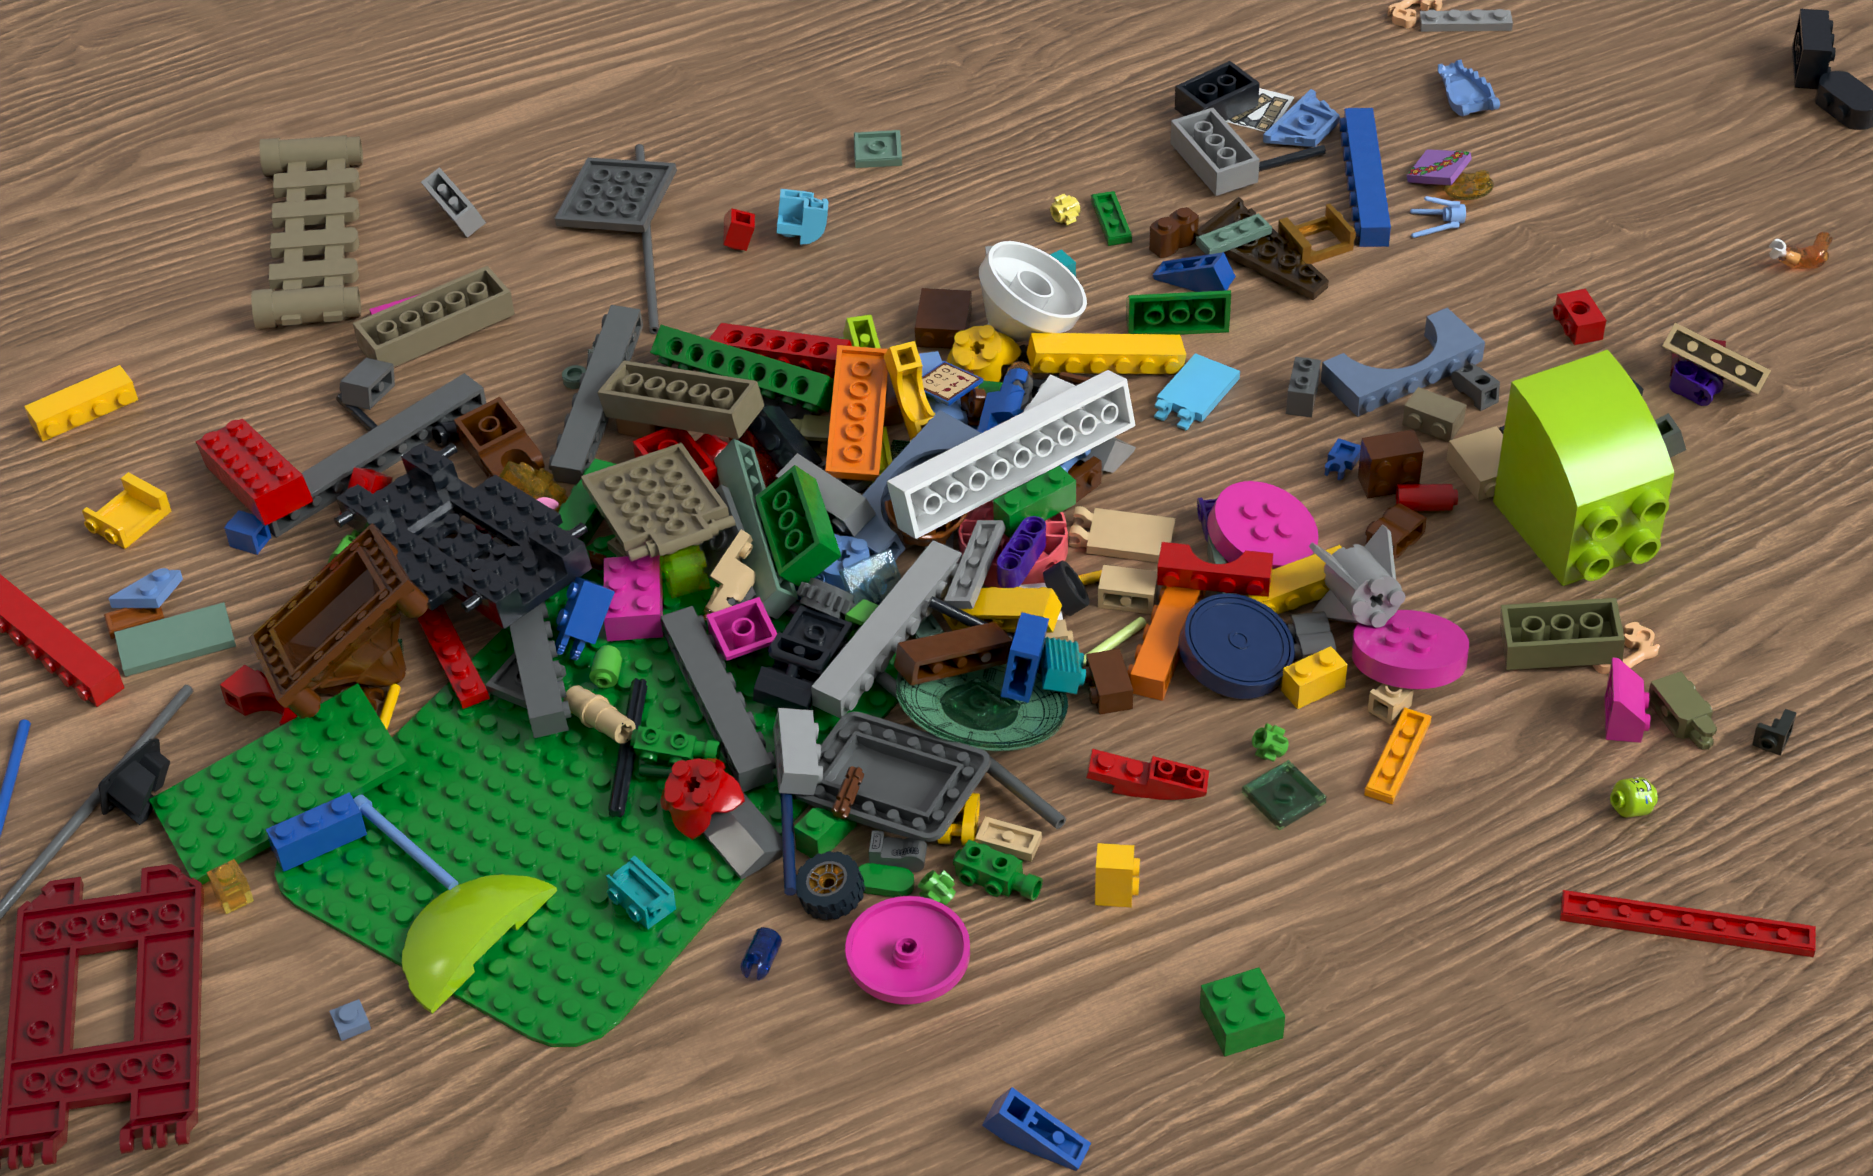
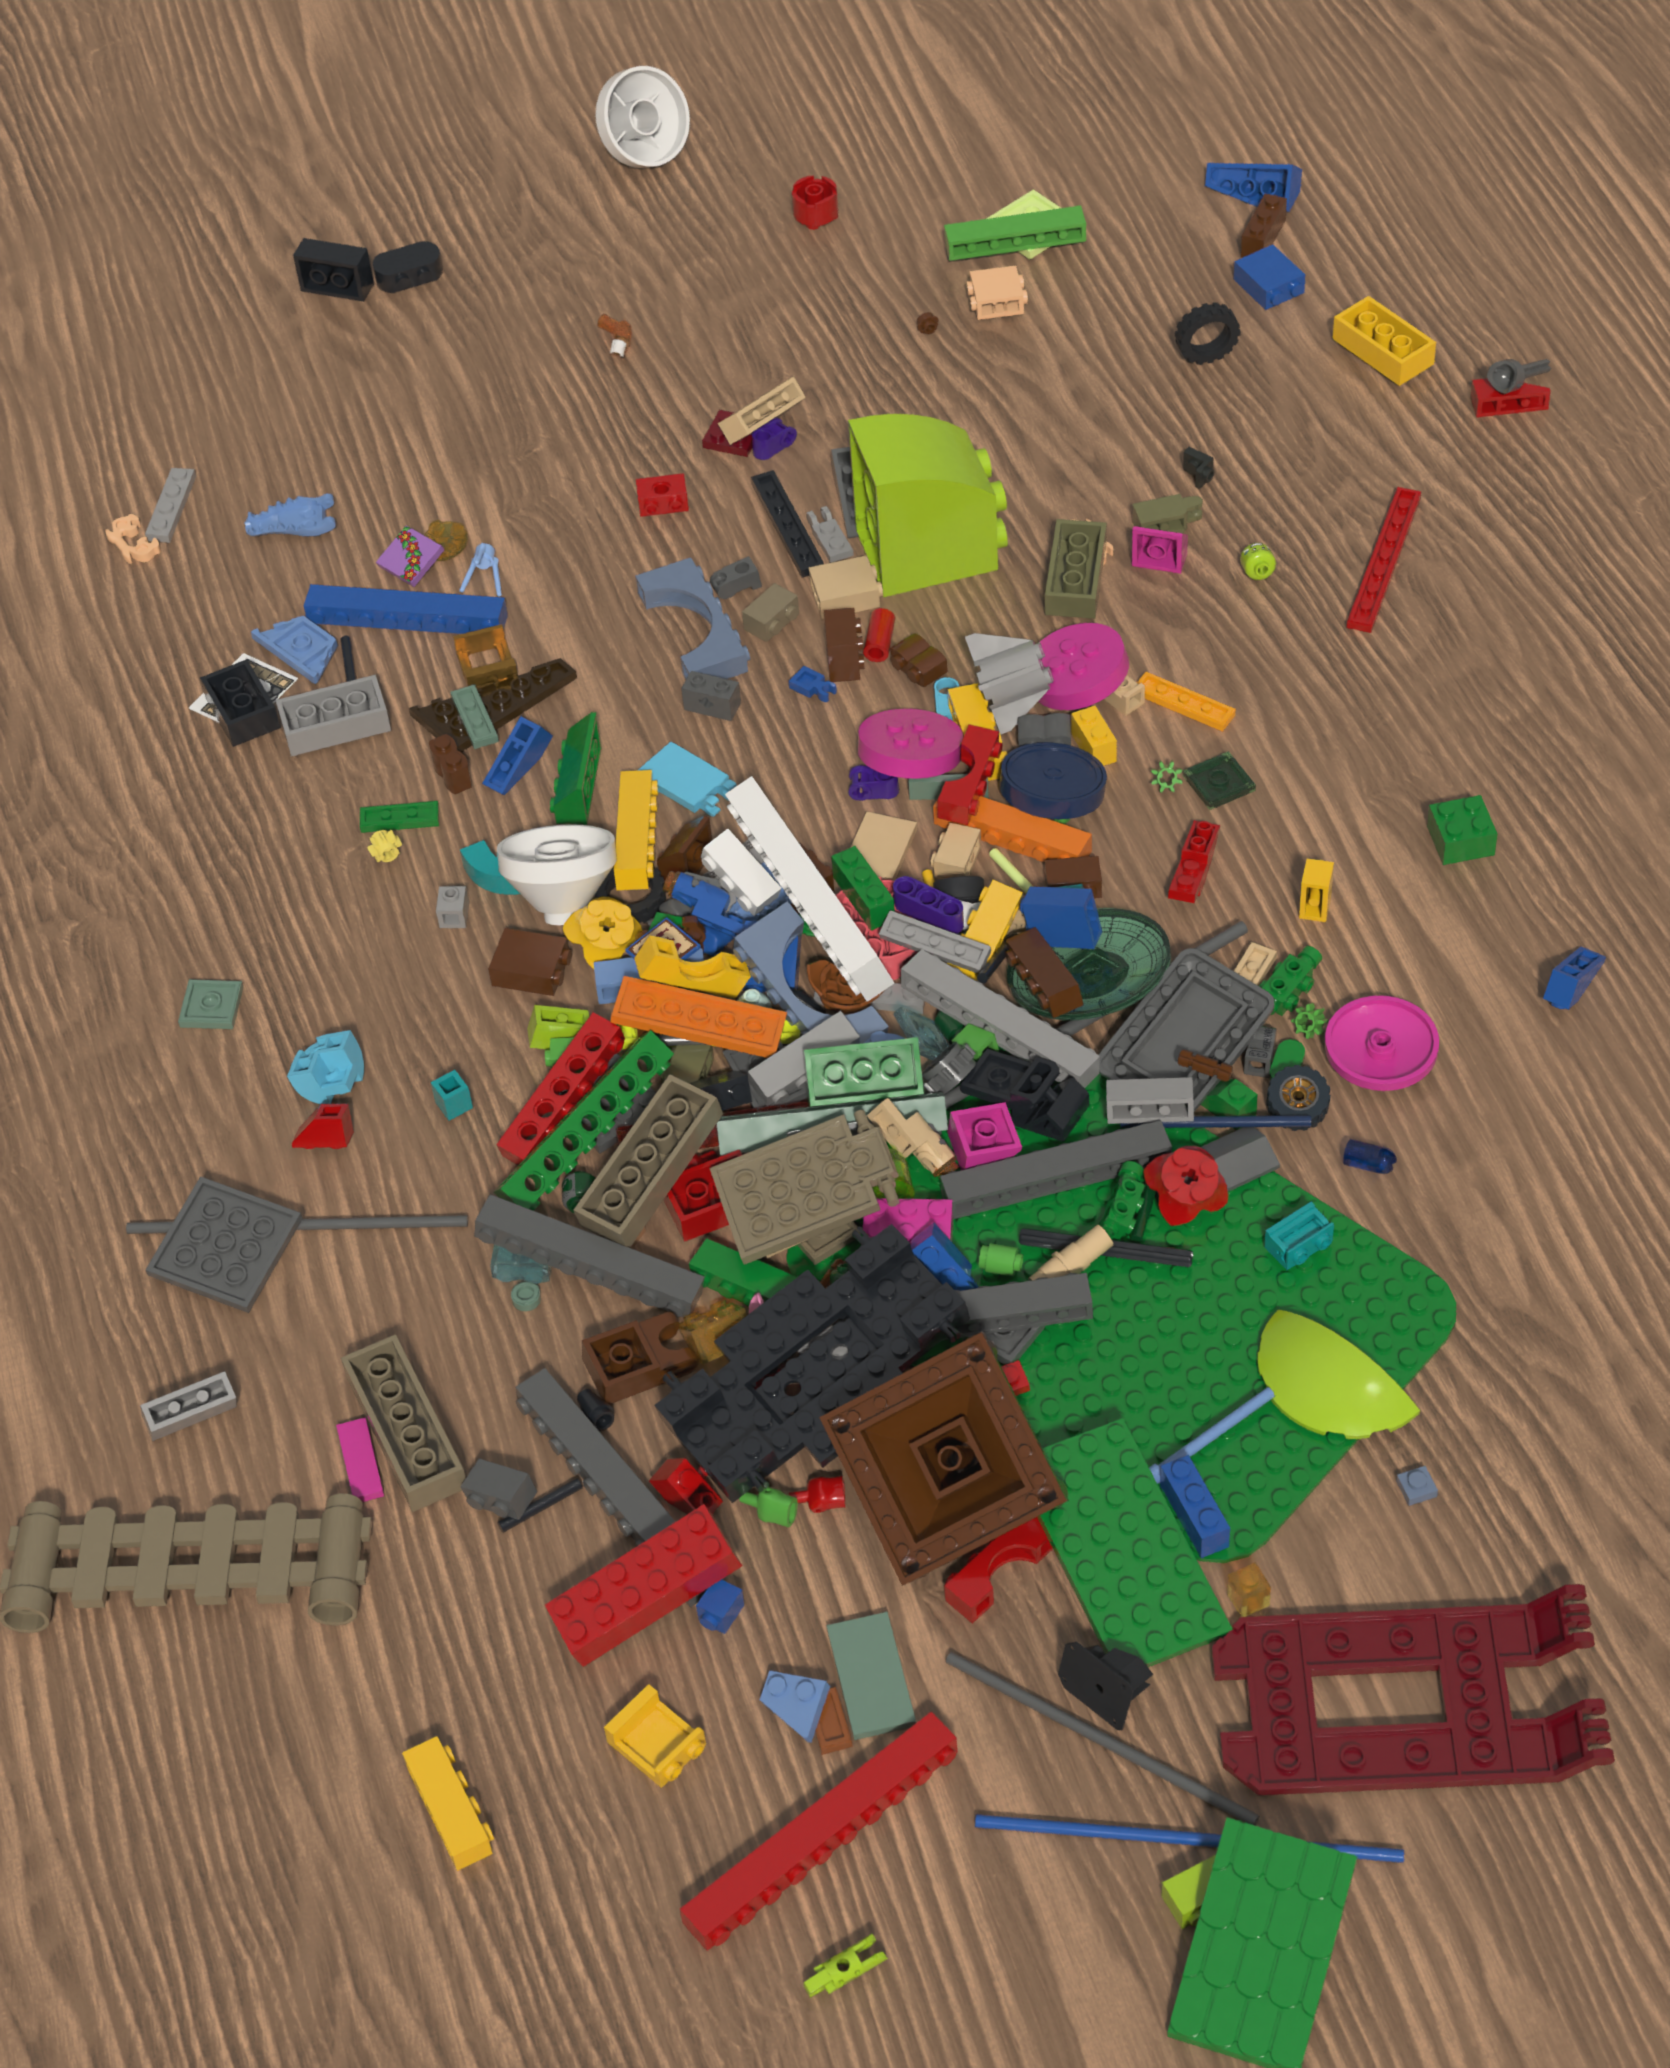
camera: 80 degrees left, 5 degrees up
(778, 291) = (451, 1095): none -> teal brick

